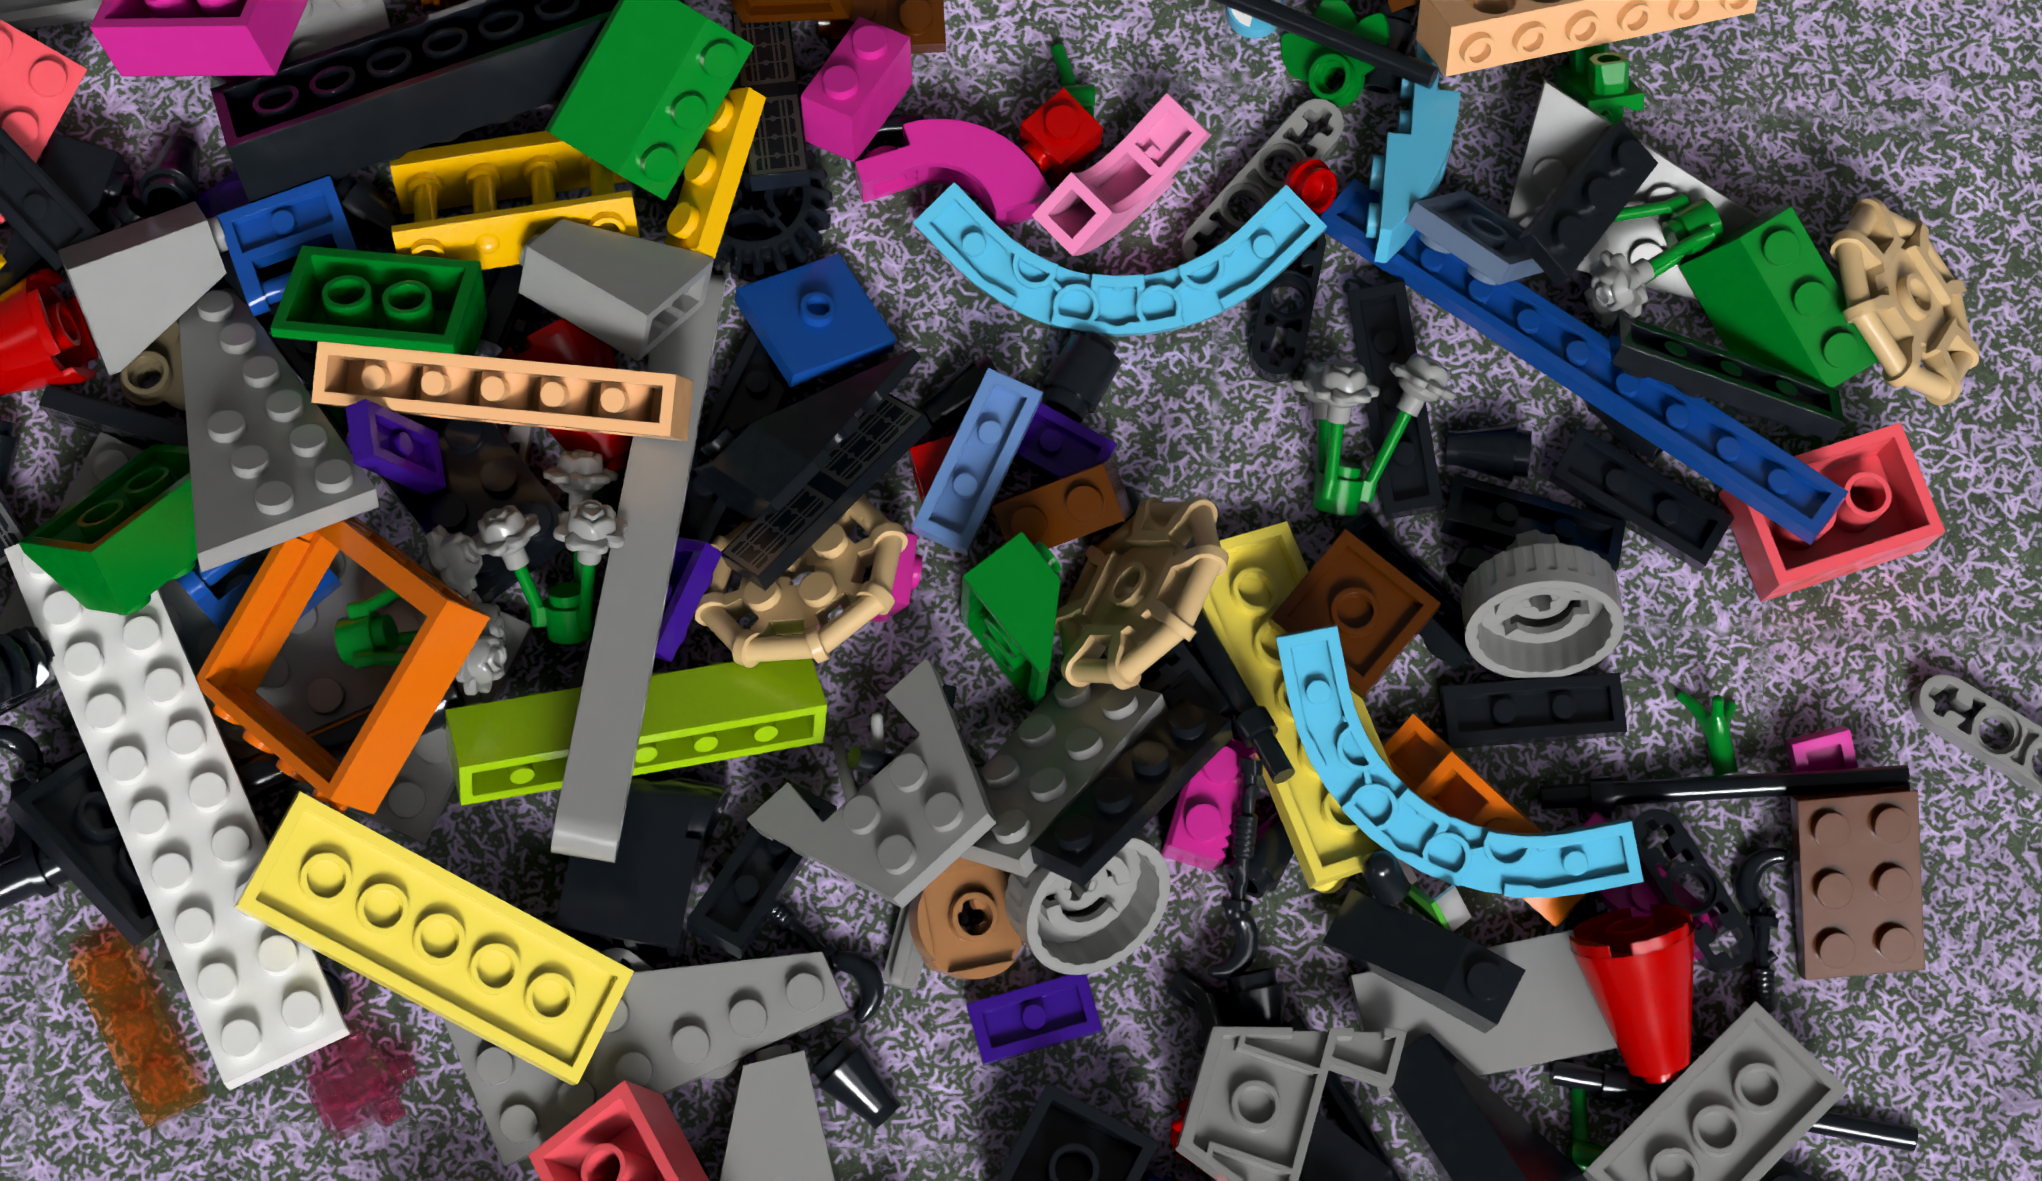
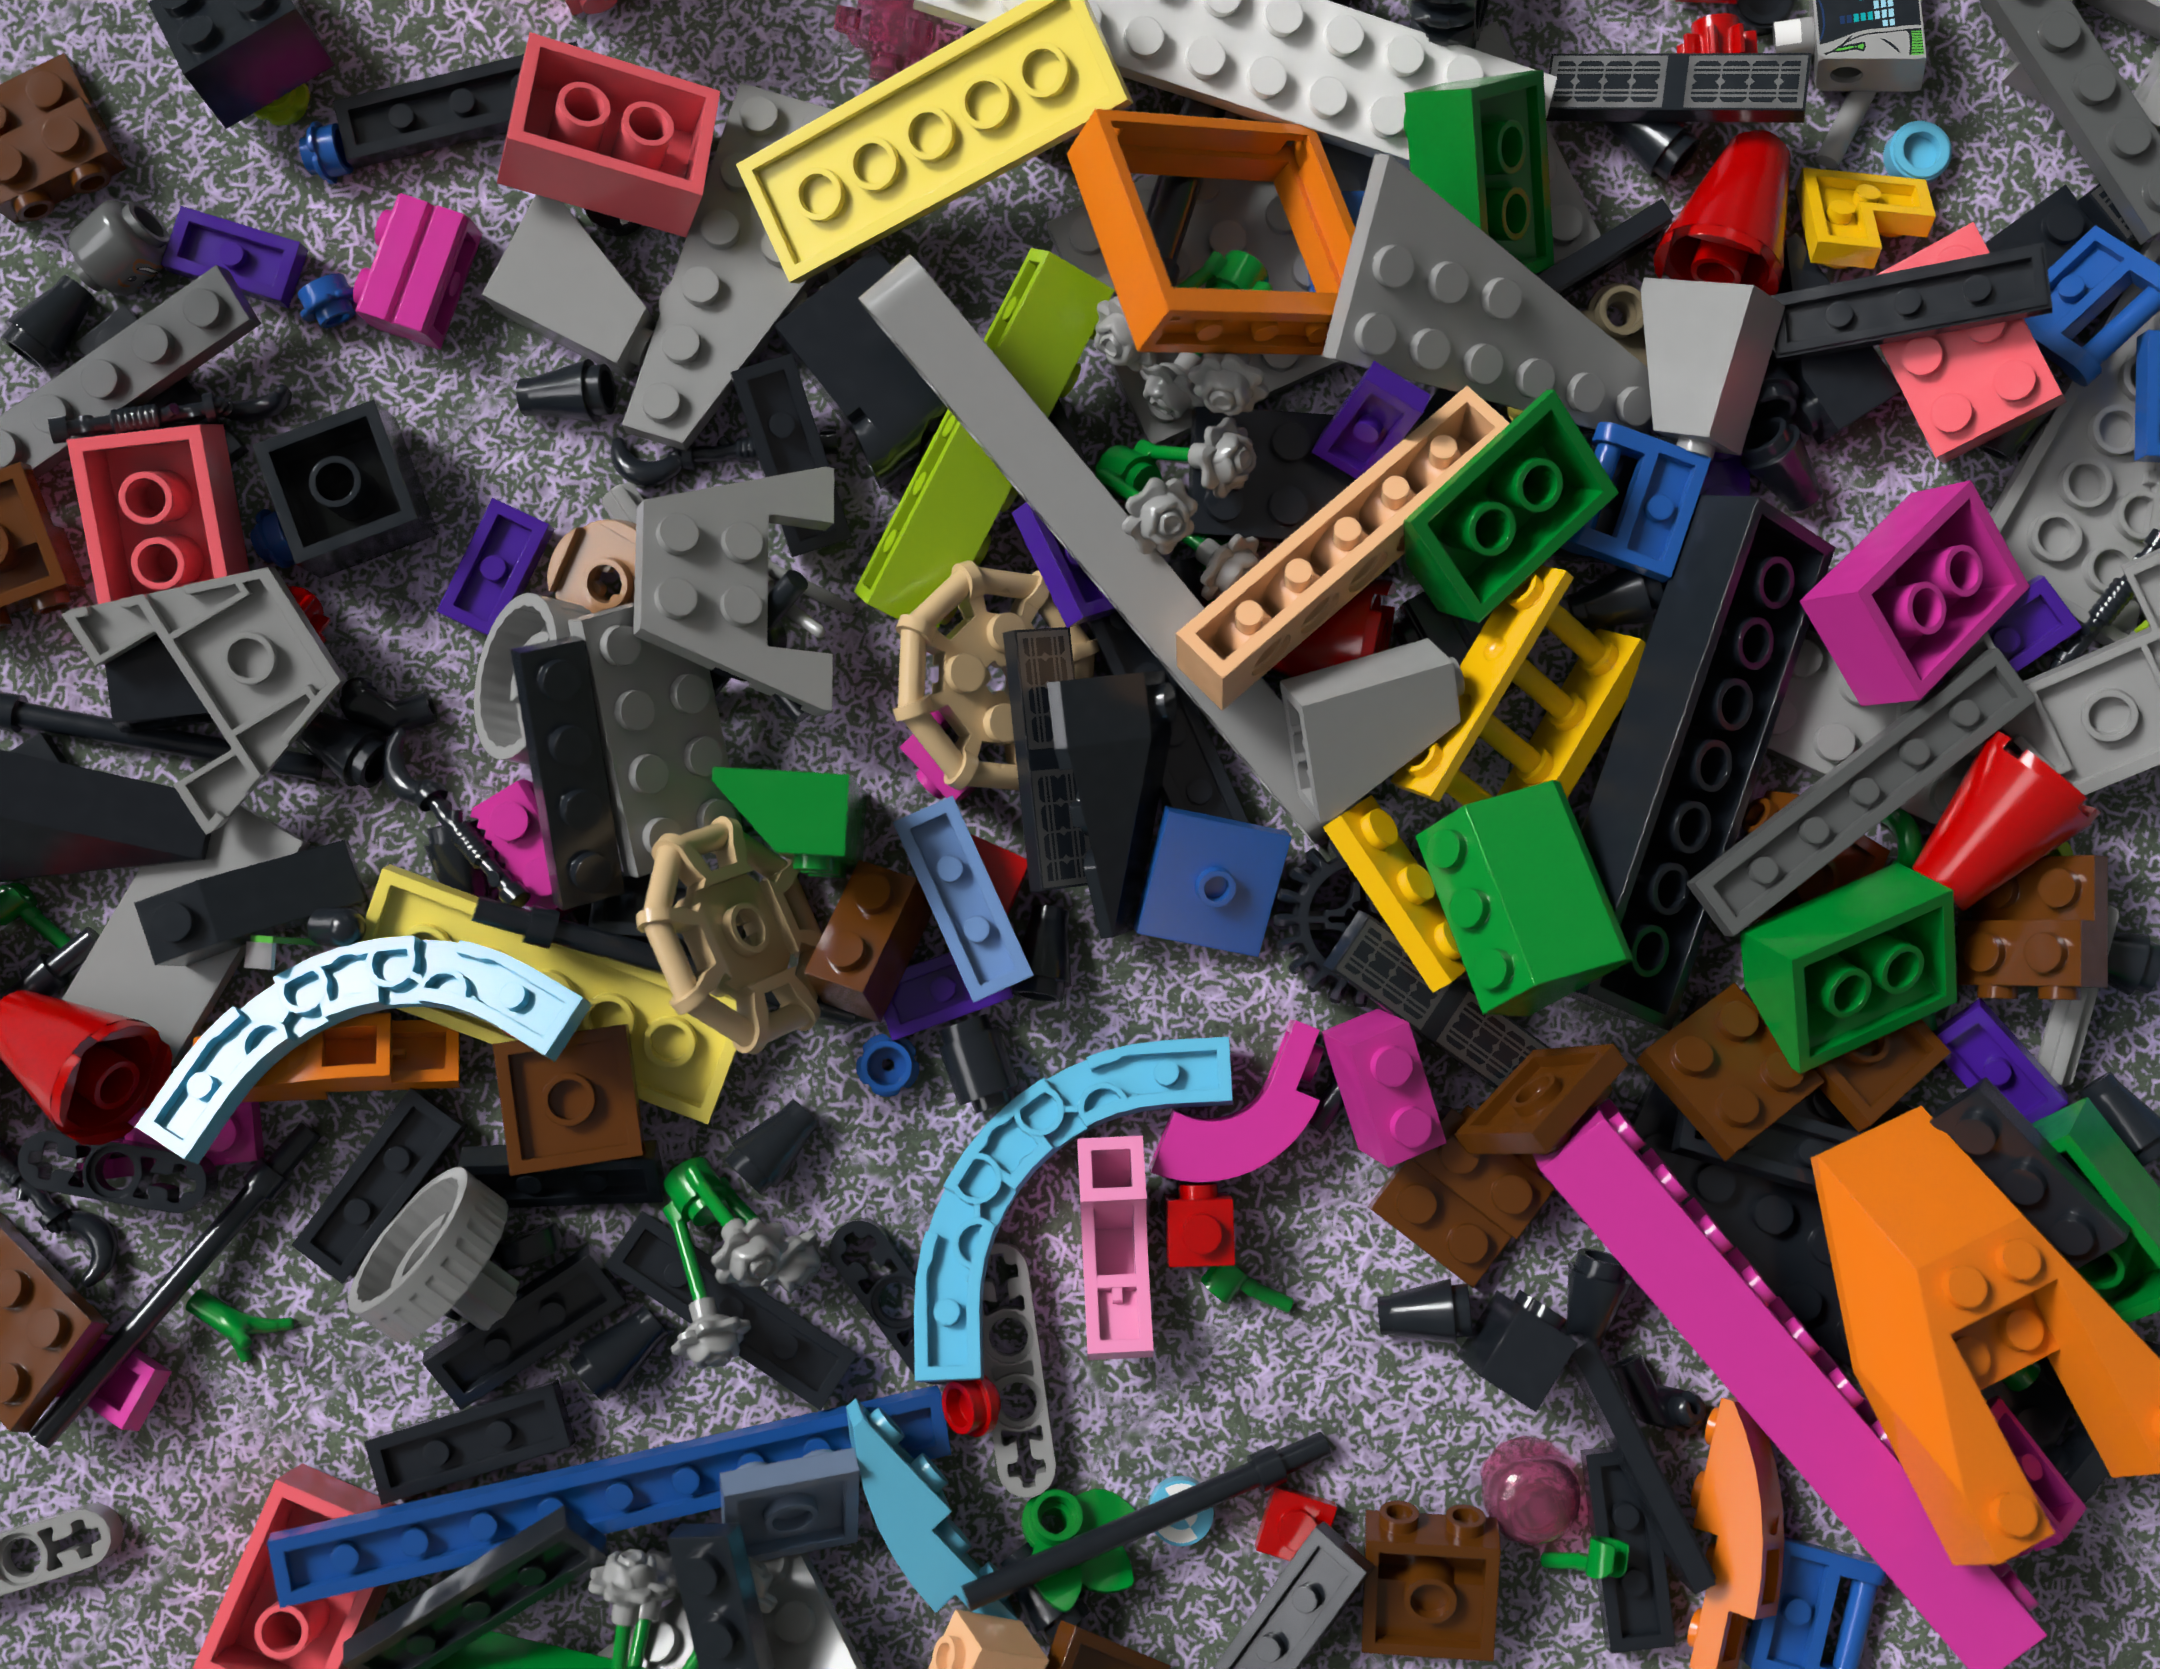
camera: 135 degrees right, 10 degrees up
(1139, 424) = (870, 1066): none -> blue plate
(1262, 466) = (771, 1147): none -> black cone

